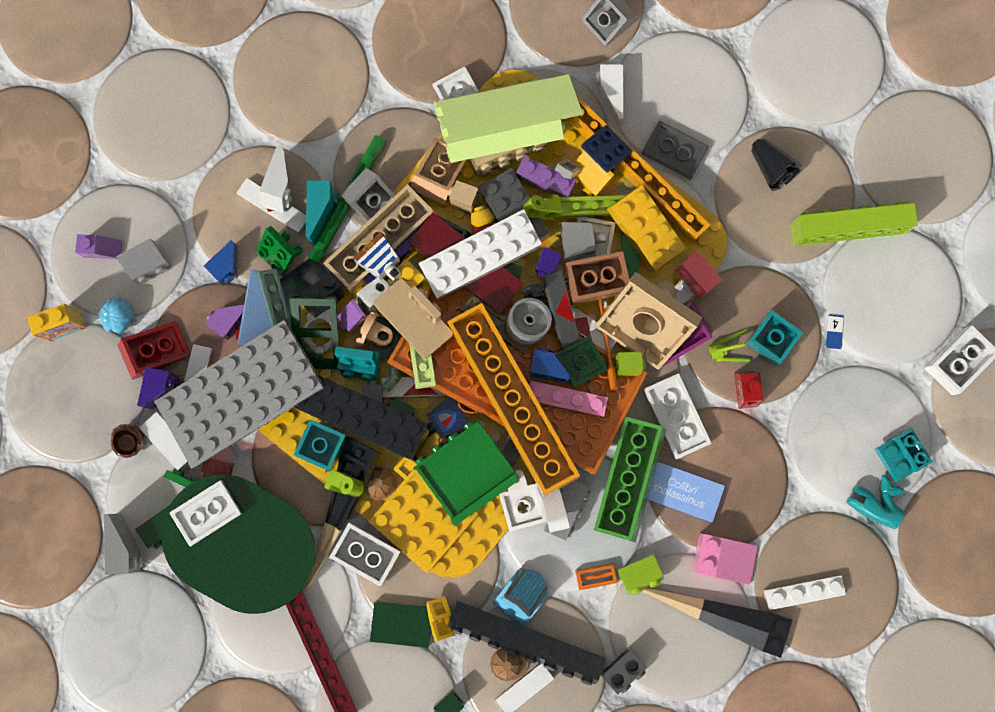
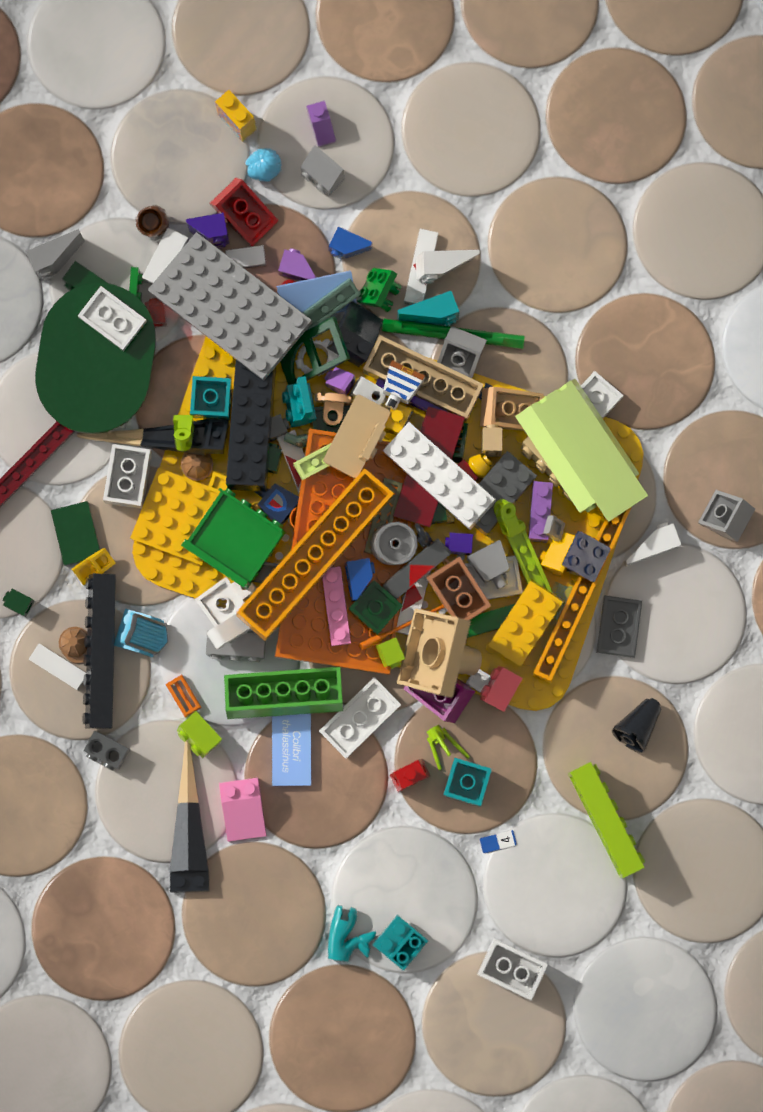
camera: 70 degrees right, 0 degrees up
(804, 592) = (238, 894): white plate -> none

